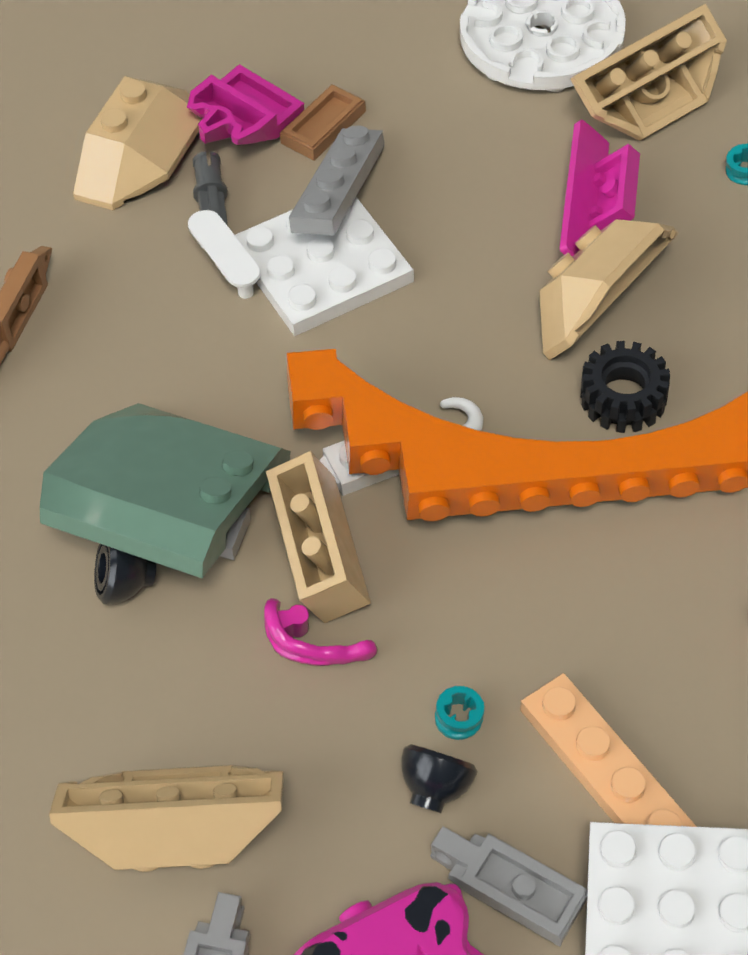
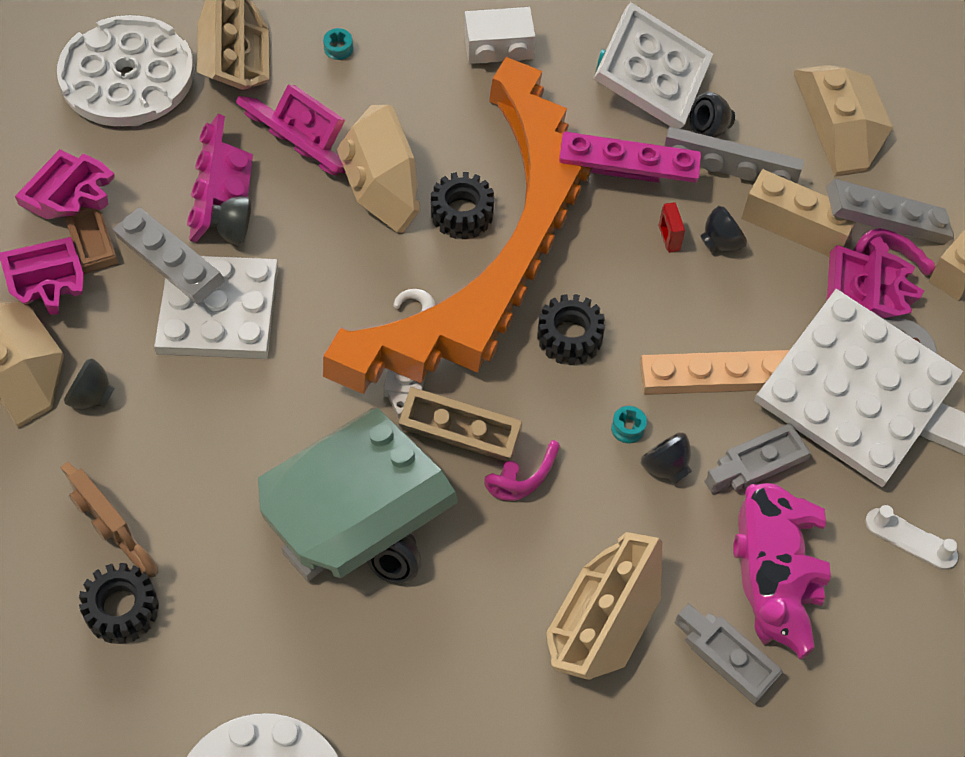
camera: 65 degrees left, 5 degrees up
(145, 213) = (89, 387): none -> pearl dark grey brick
(209, 188) = (100, 337): dark grey axle -> none
(225, 251) = (168, 353): white piece -> none
(357, 64) = (65, 186): none -> dark pink plate
(425, 204) = (232, 219): none -> pearl dark grey brick
(475, 174) = (222, 175): none -> dark pink bracket
(547, 556) = (575, 312): none -> black tyre

